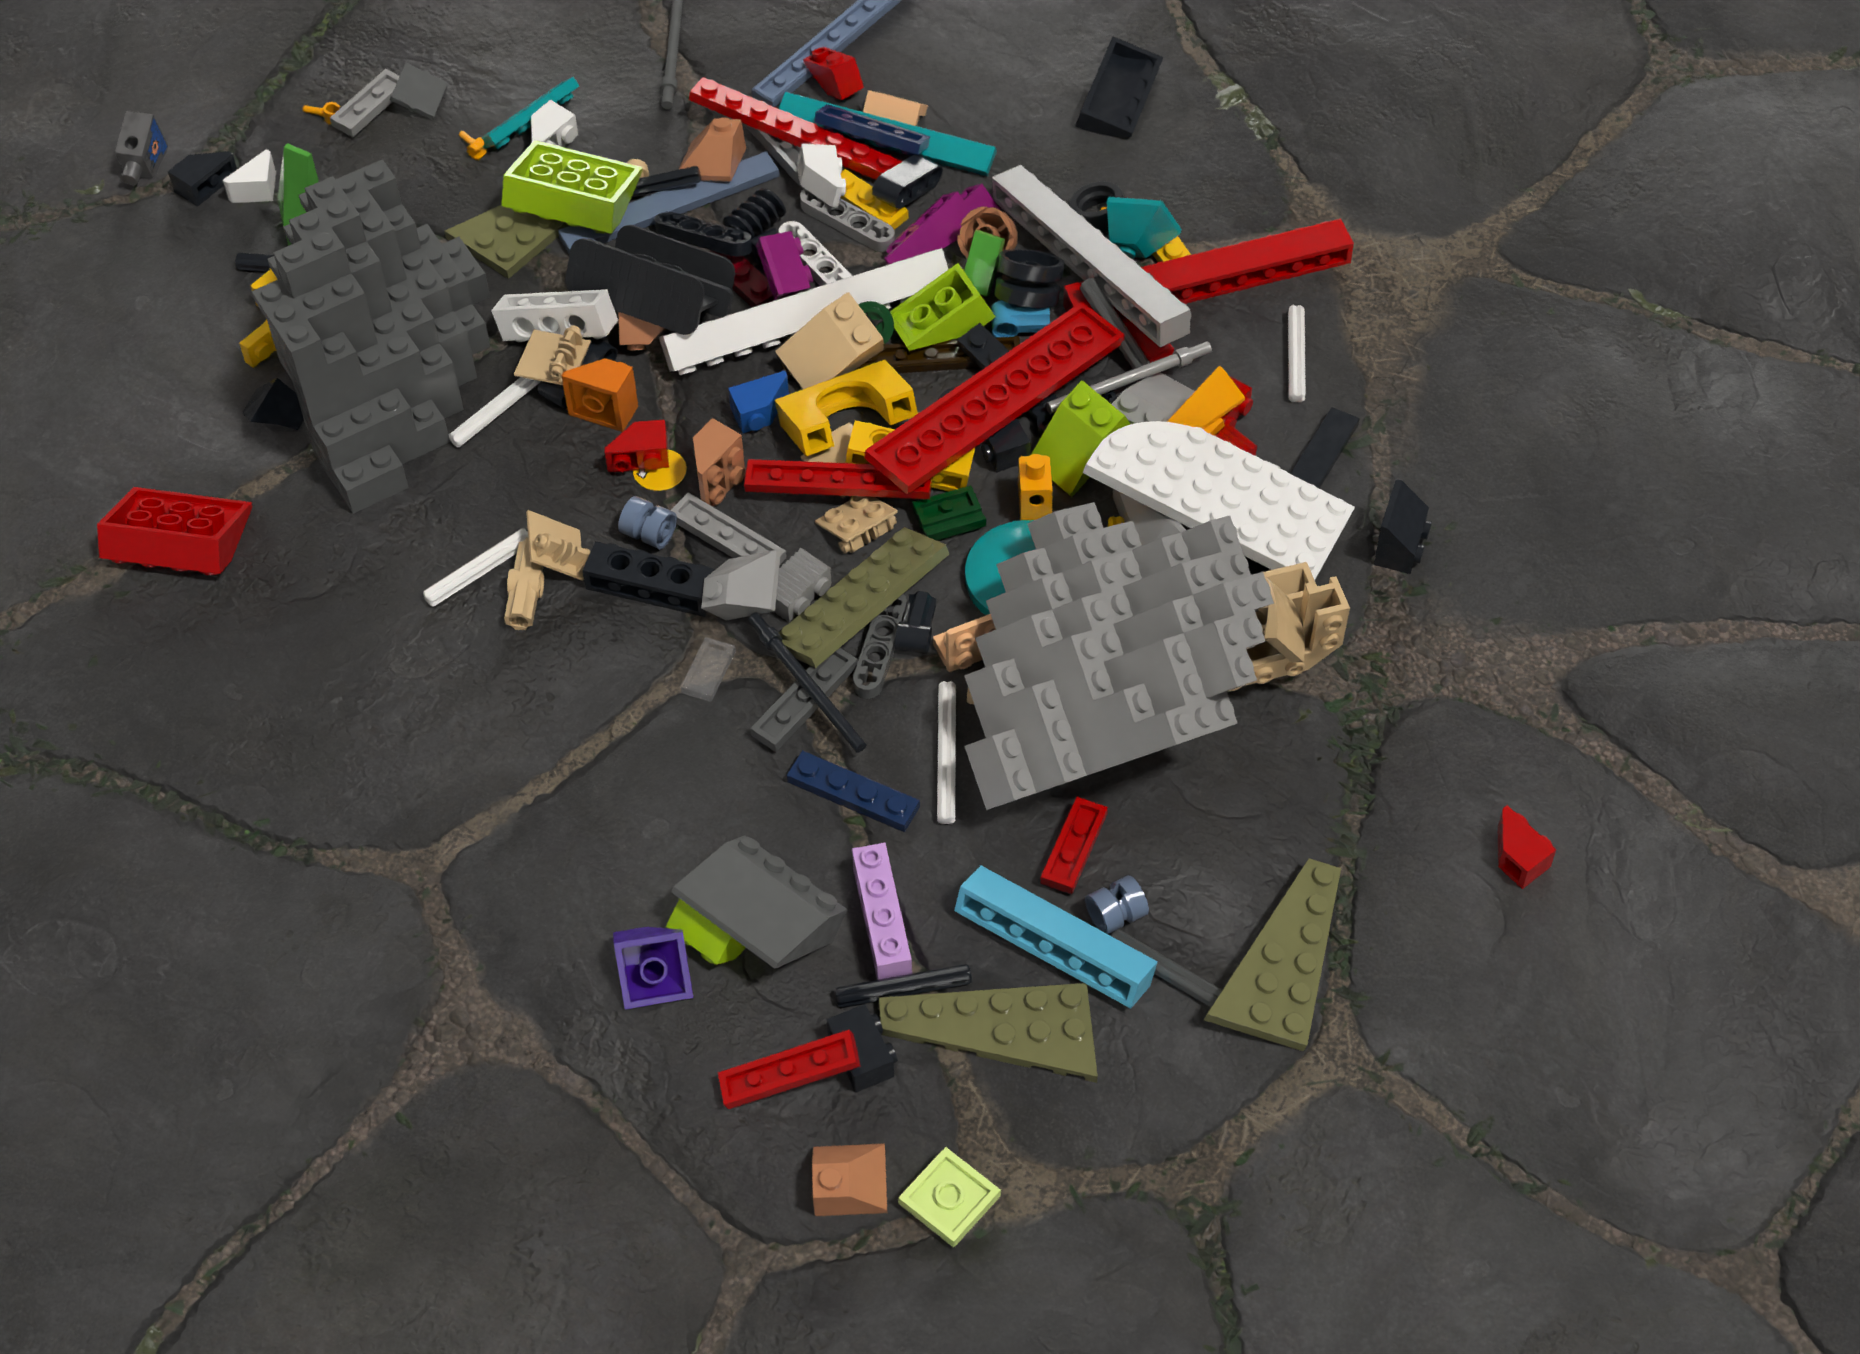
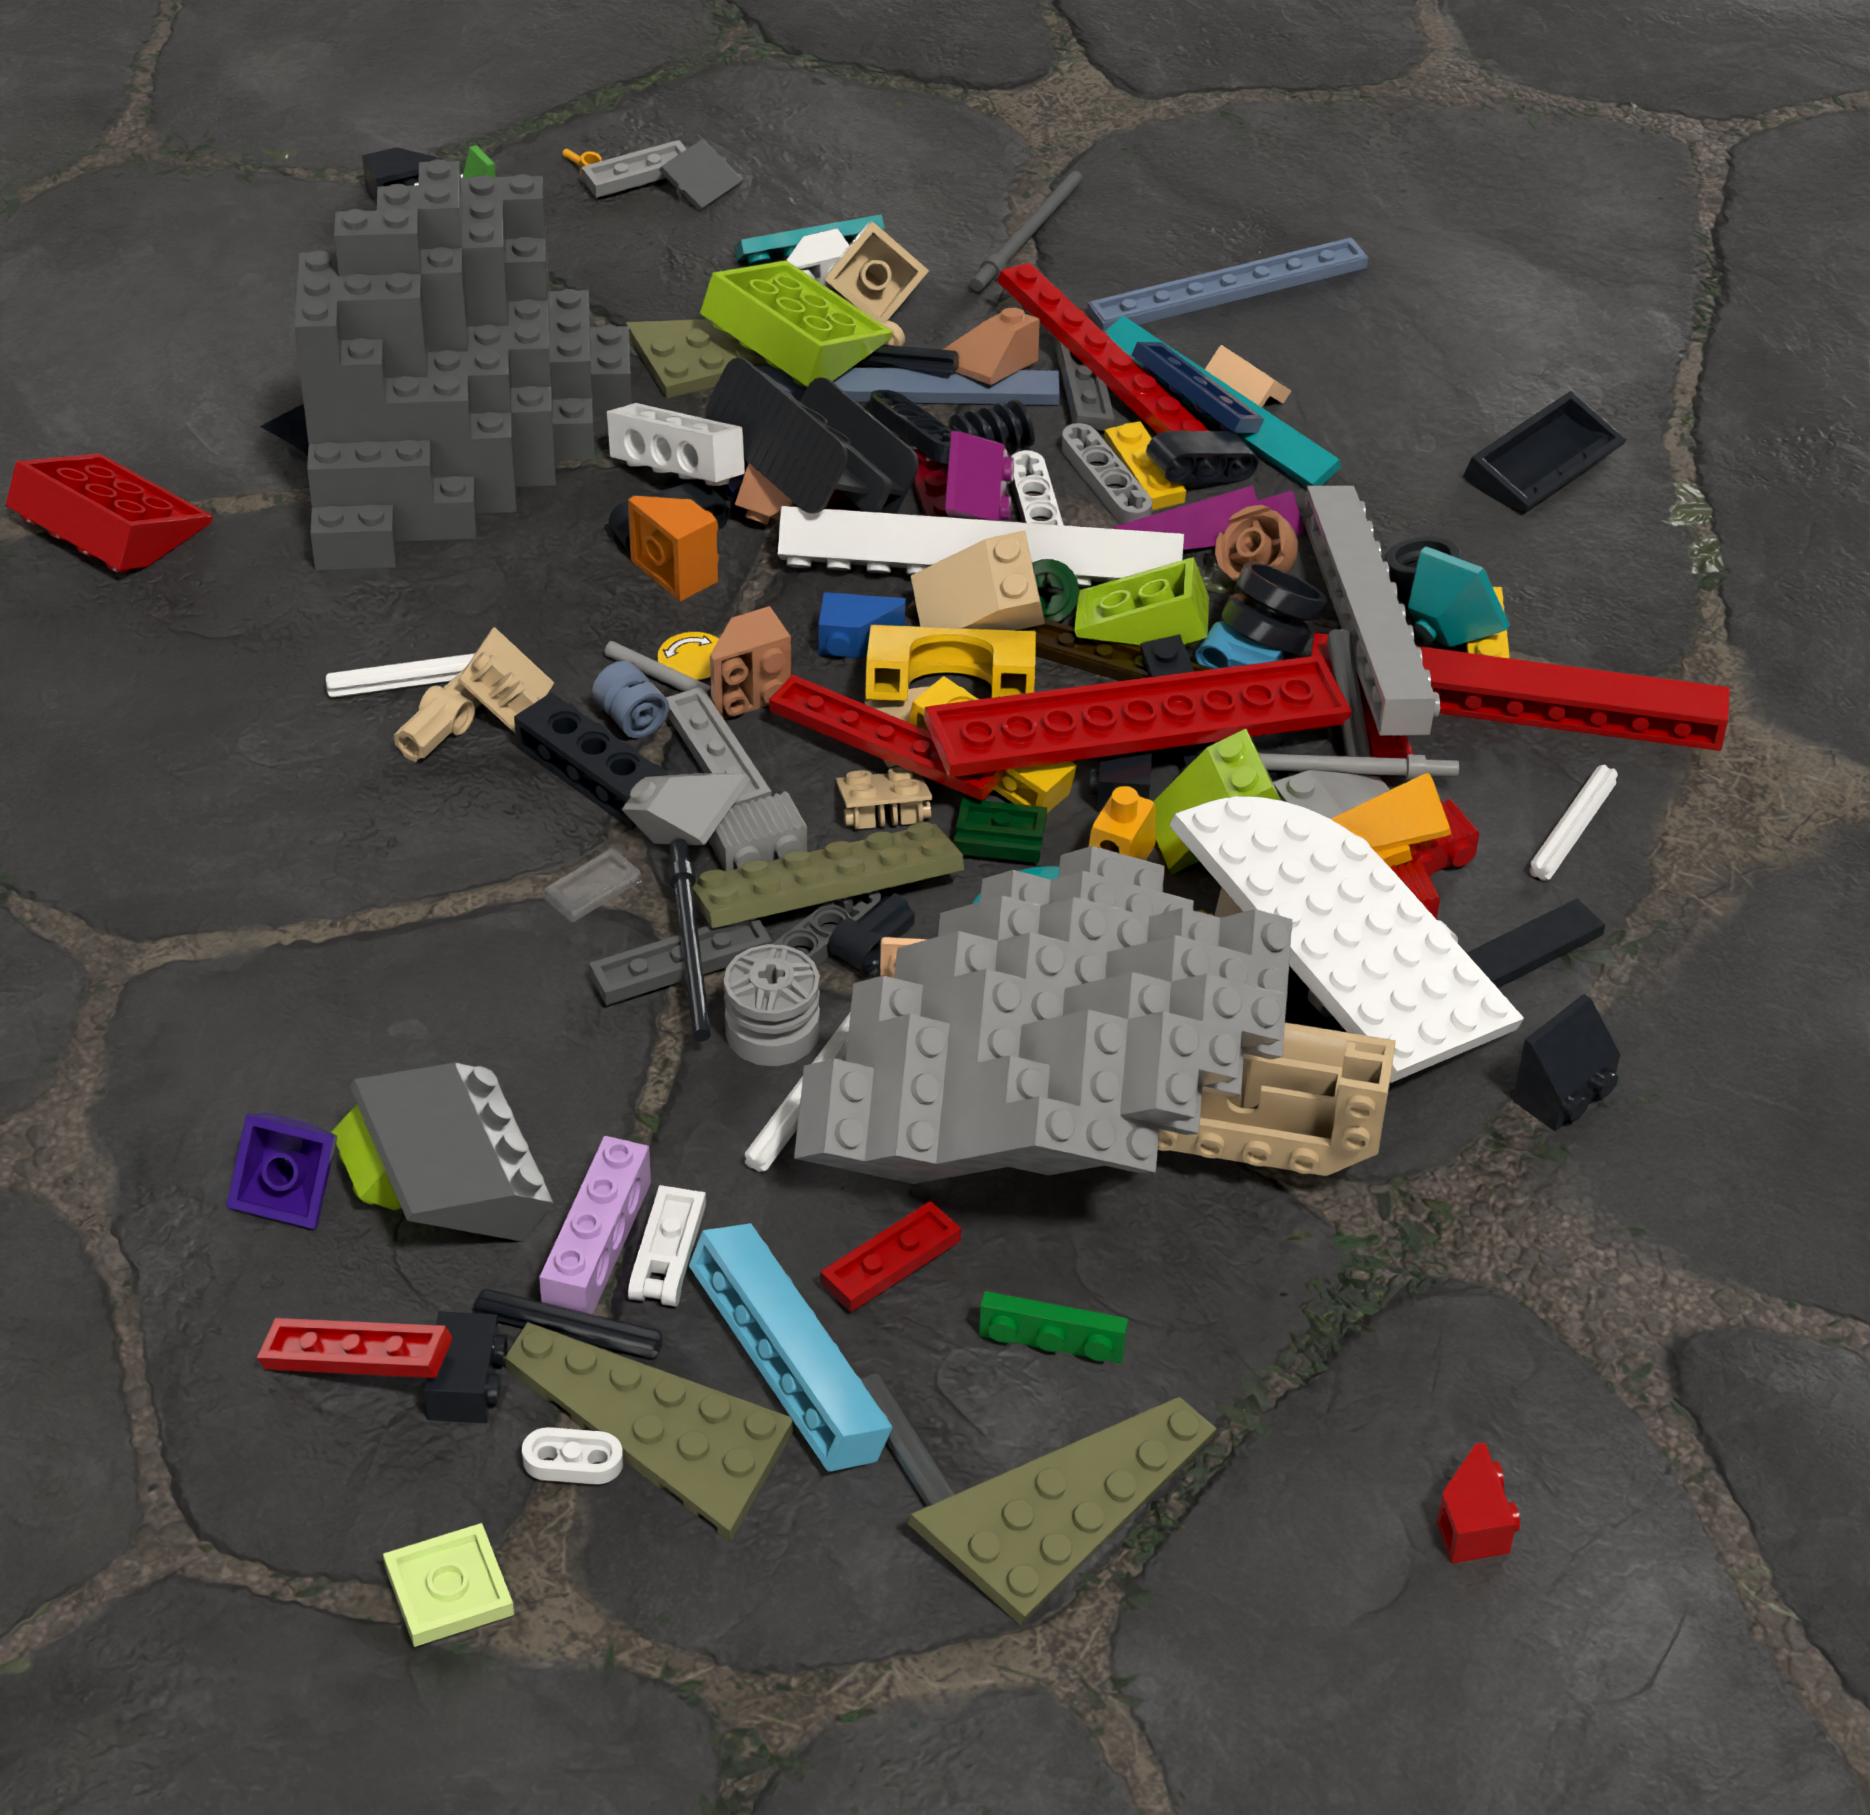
camera: 25 degrees right, 10 degrees down
(140, 147) = (352, 123): flat silver torso -> none
(475, 147) = (723, 254): light orange hand -> none
(491, 410) = (547, 520): white axle -> none
(552, 354) = (643, 476): tan hinge -> none
(601, 125) = (875, 273): none -> tan slope
(639, 447) = (680, 619): red slope -> none
(644, 491) = (655, 669): none -> light grey bar
(821, 172) = (1098, 407): white slope -> none
(834, 72) = (1197, 315): red slope -> none
(849, 1180) = (341, 1509): nougat slope -> none
(853, 791) = (667, 1086): dark blue plate -> none
(892, 706) = (772, 1005): none -> light grey wheel
(930, 902) = (667, 1245): none -> white plate
(966, 1073) = (573, 1455): none -> white plate
(983, 260) = (1223, 574): bright green tile -> none
(1120, 903) = (892, 1343): sand blue wheel -> none
(1204, 847) = (1053, 1327): none -> green plate
(1284, 625) = (1300, 1083): tan slope -> none

